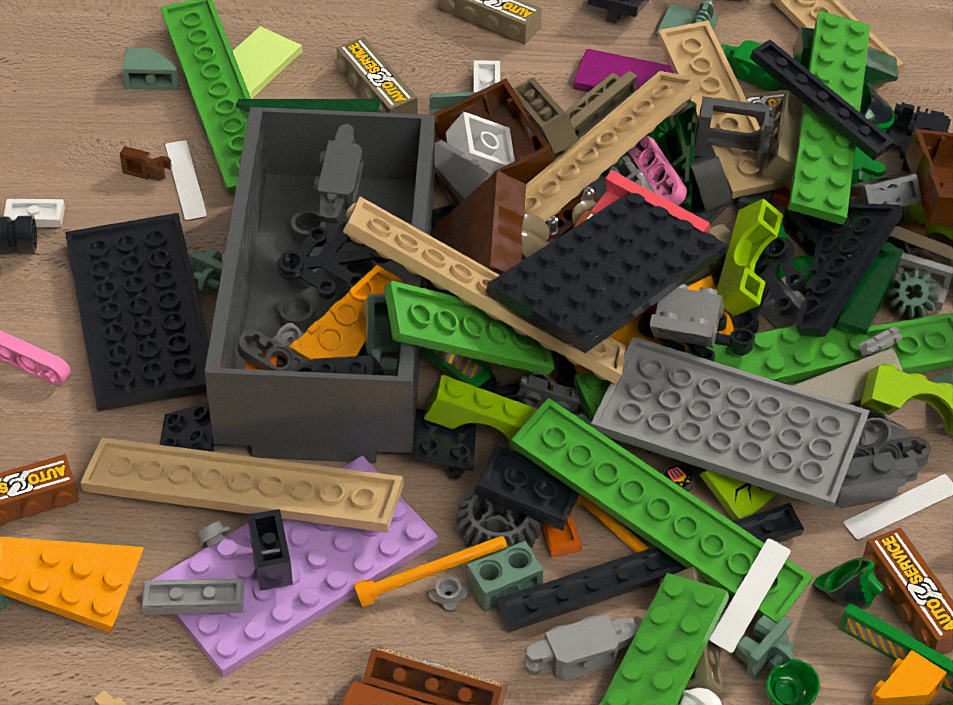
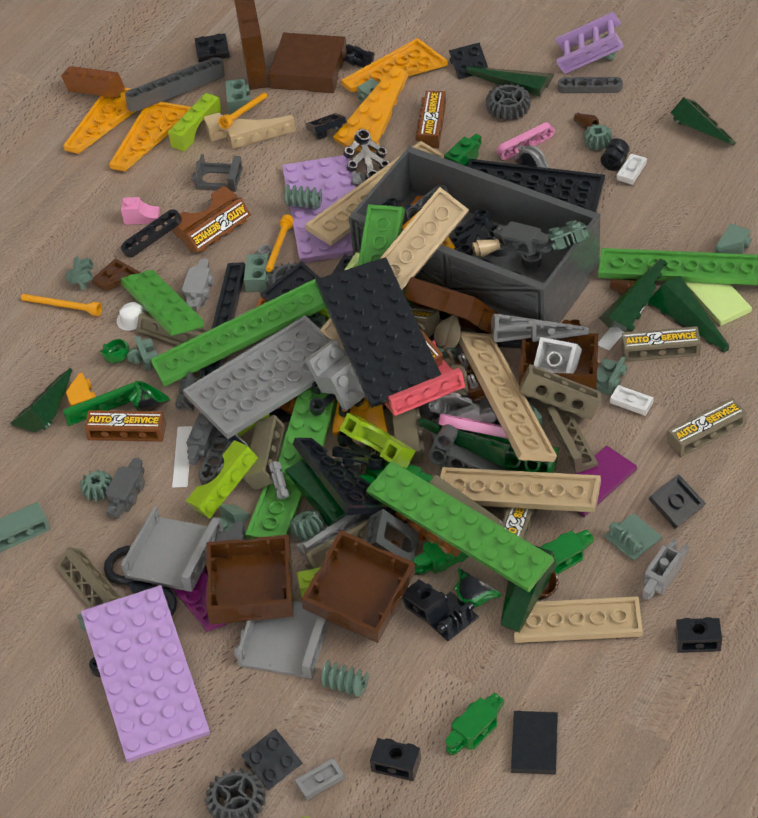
camera: 125 degrees right, 0 degrees up
(62, 331) = (530, 156): none -> light grey hat
(89, 642) = (322, 124): none -> black hinge
(96, 415) = (464, 150): none -> green hinge
(119, 554) = (363, 138): none -> plant
(139, 164) = (647, 218): reddish brown plate -> none
(186, 180) = (632, 241): white sticker -> none
(193, 596) = (324, 160): light grey tile -> none
(270, 549) = (327, 180): black brick -> none
(304, 73) = (679, 303): none -> dark green wedge
(311, 121) = (556, 234): none -> sand green hinge
(313, 570) = (303, 198): none -> sand green piece
(749, 595) = (171, 352): white sticker -> none
(753, 141) = (484, 453): dark grey panel -> none
(809, 544) = (182, 402): none -> dark grey hinge
(822, 99) = (458, 504): black plate -> none

